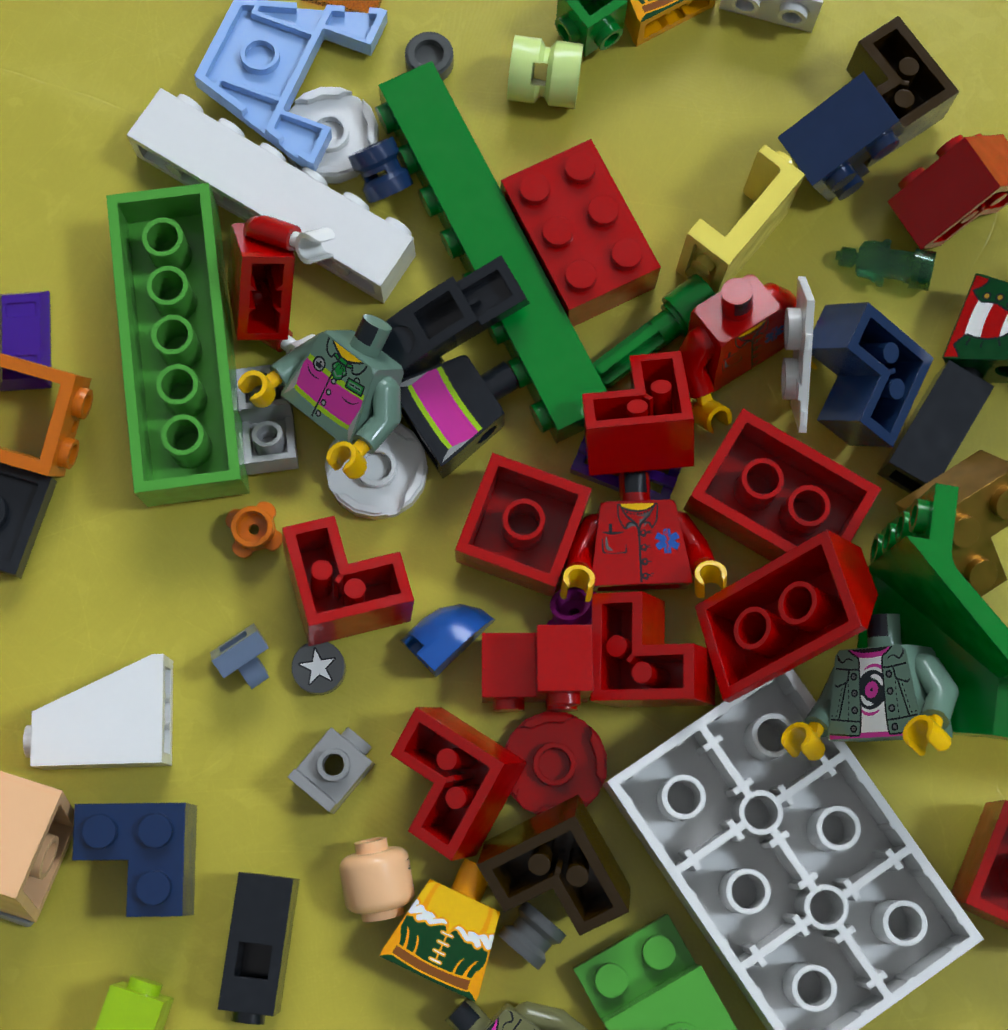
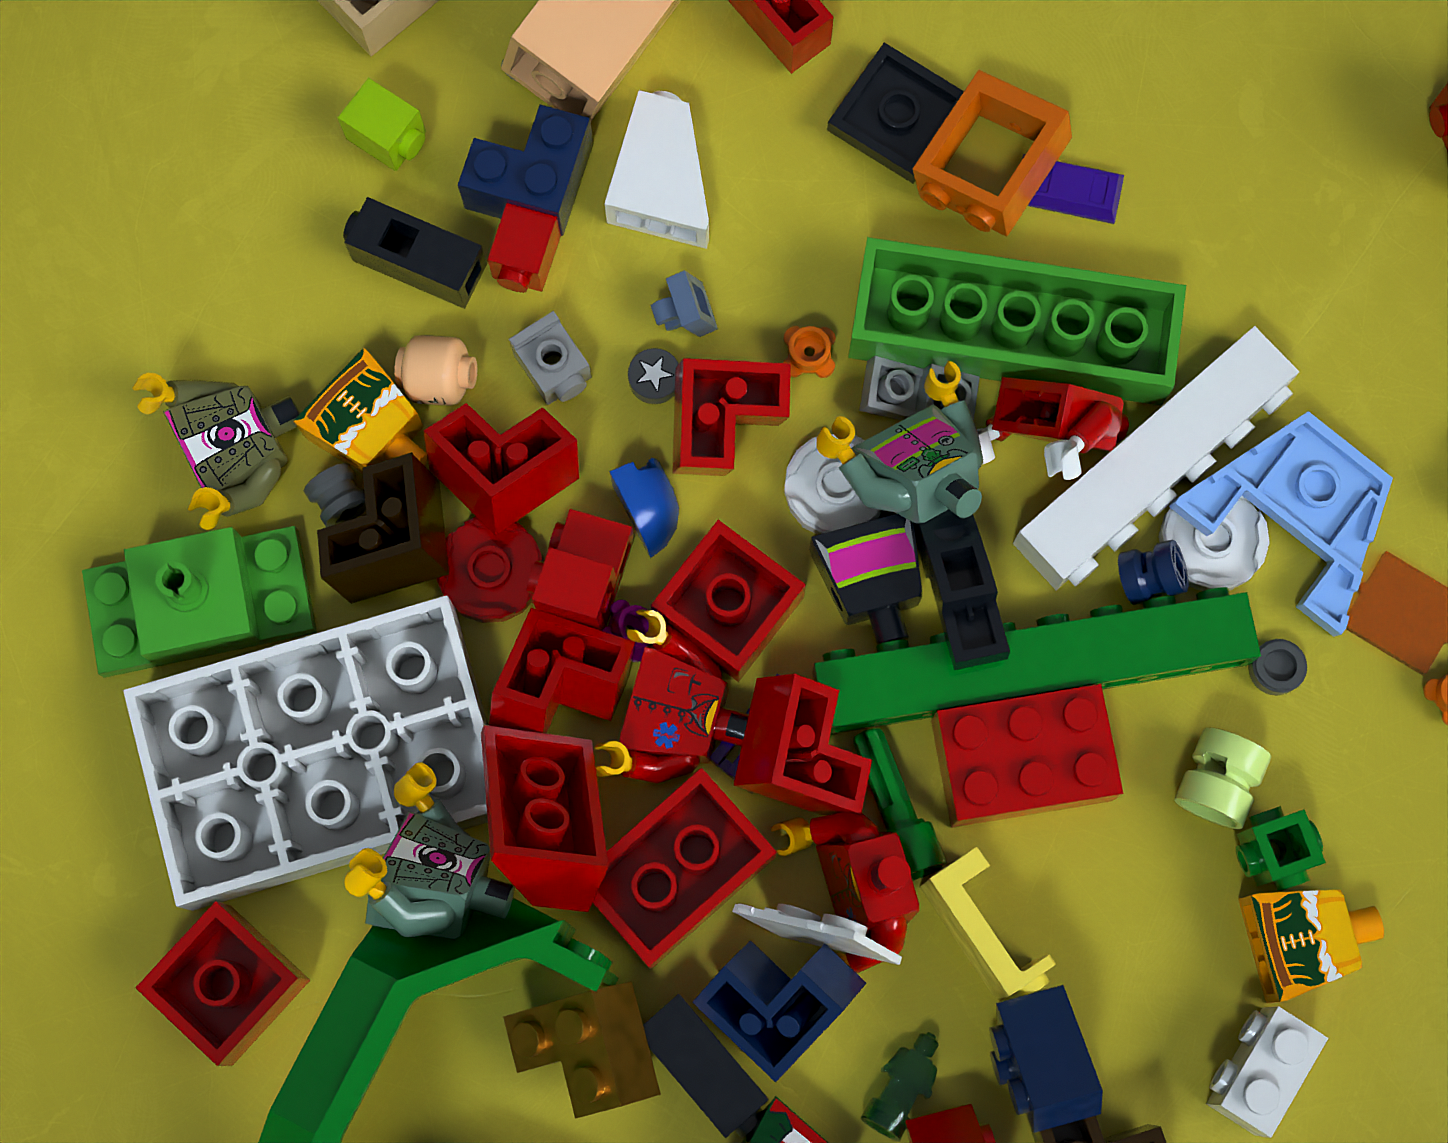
camera: 110 degrees right, 0 degrees up
(226, 833) = (523, 248): none -> red brick

